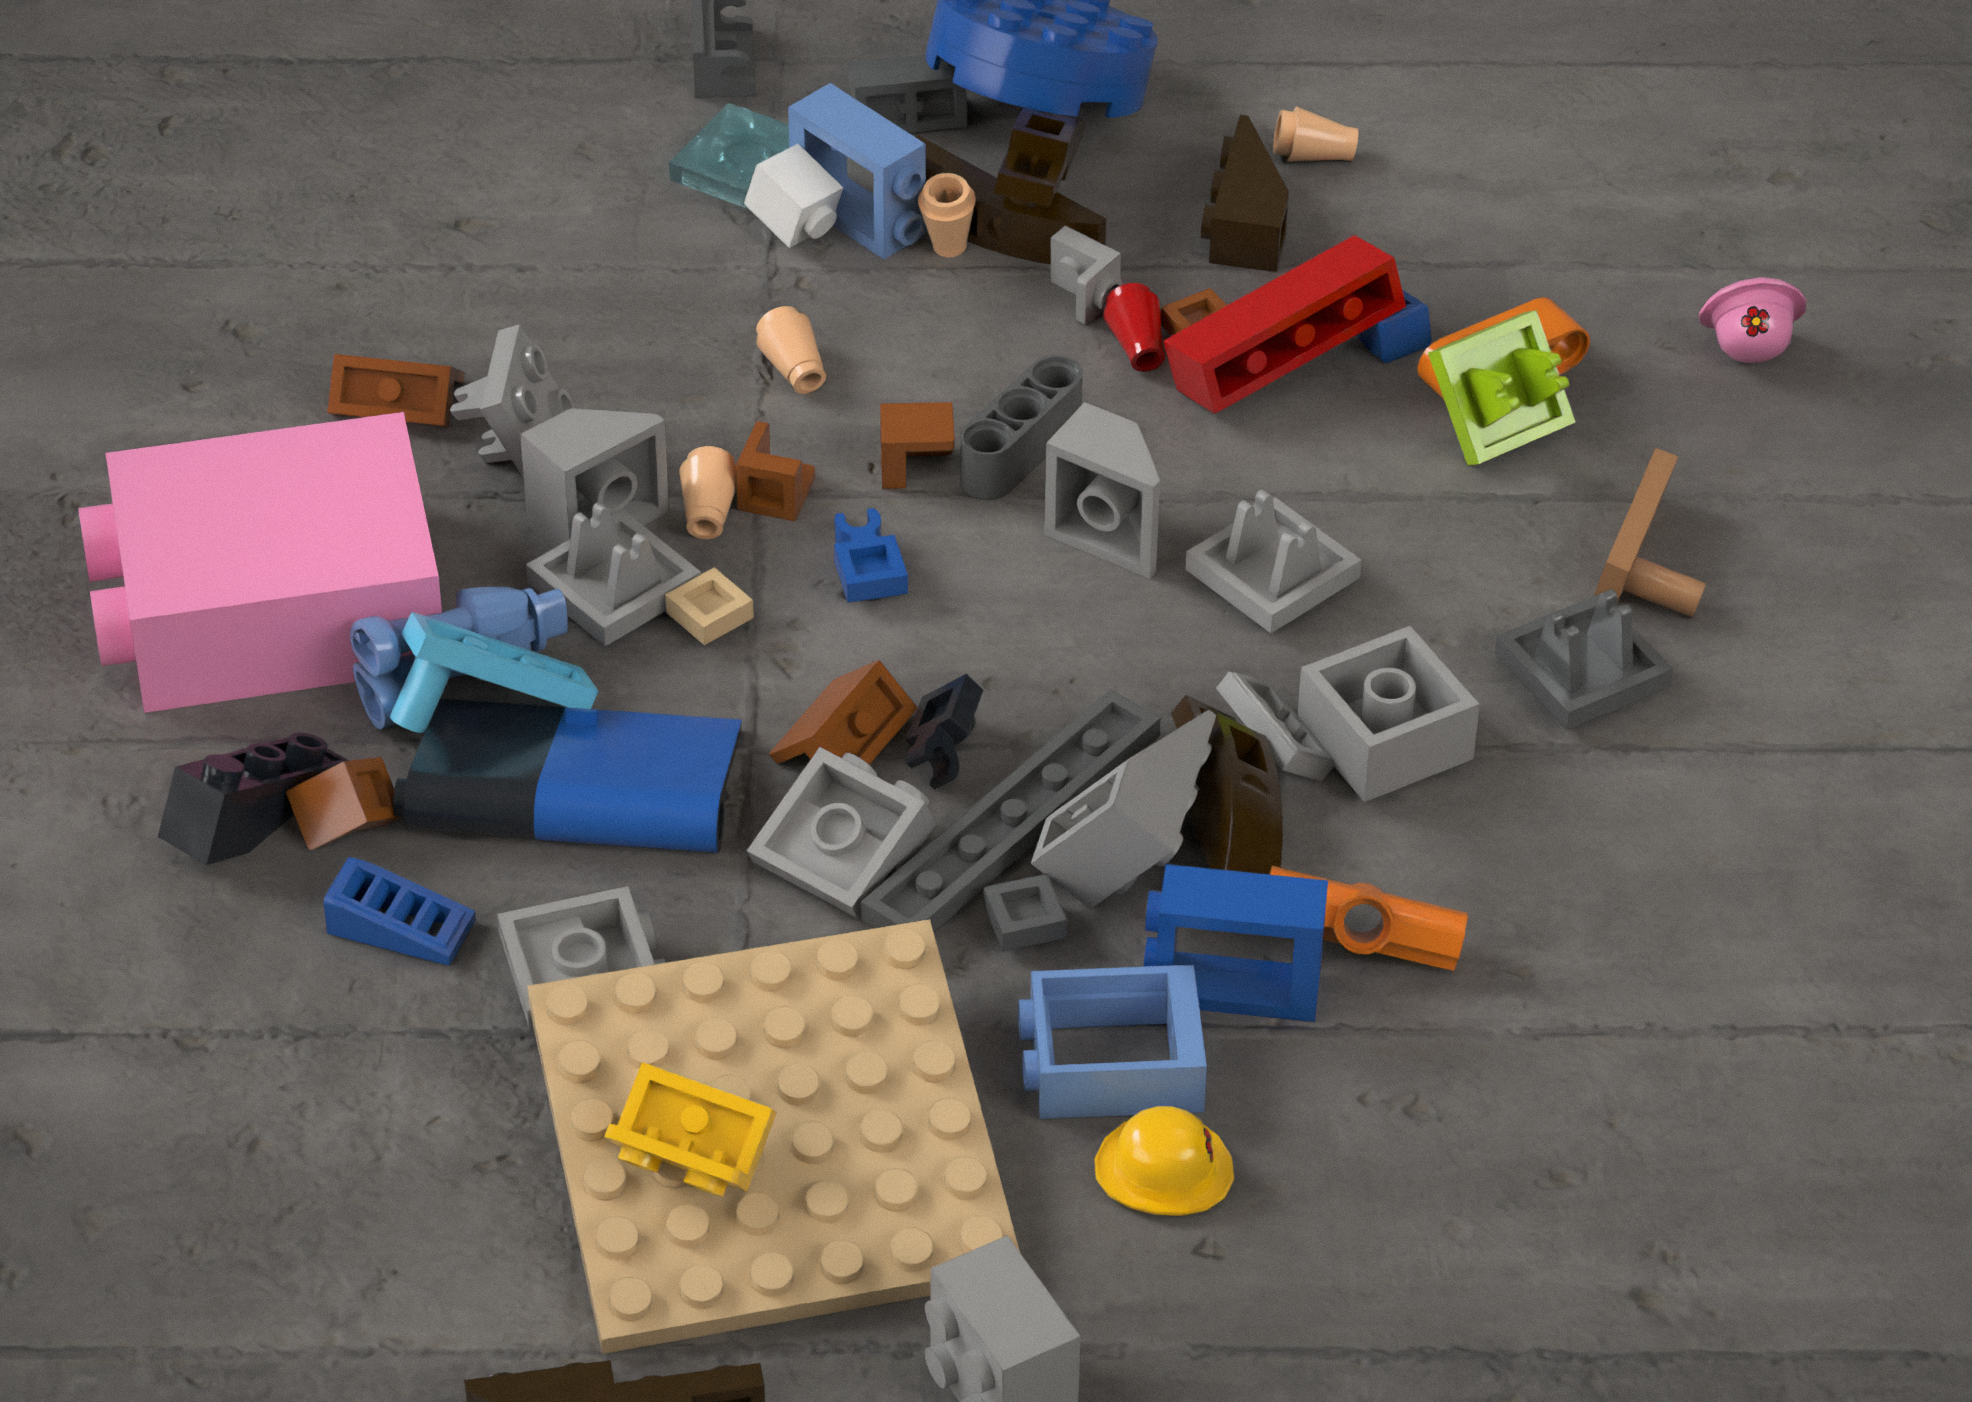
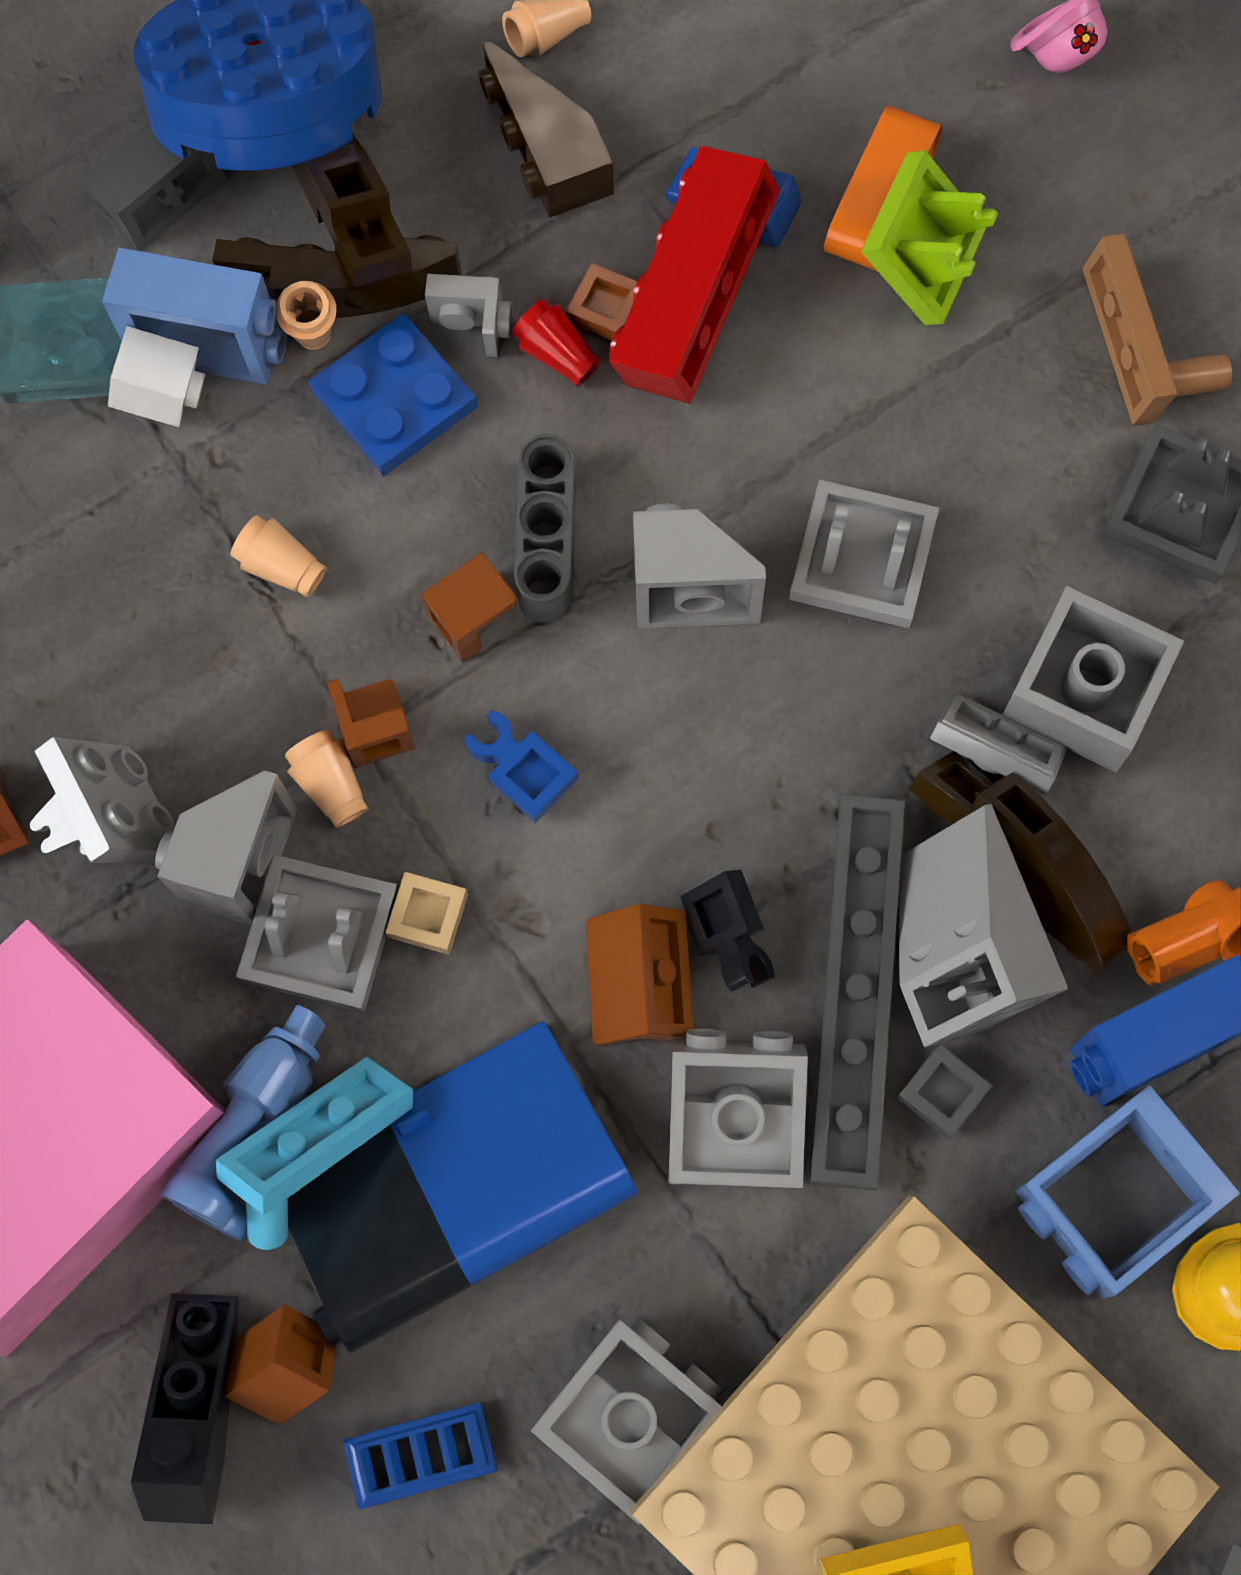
camera: 30 degrees left, 30 degrees up
(977, 304) = (393, 394): none -> blue plate

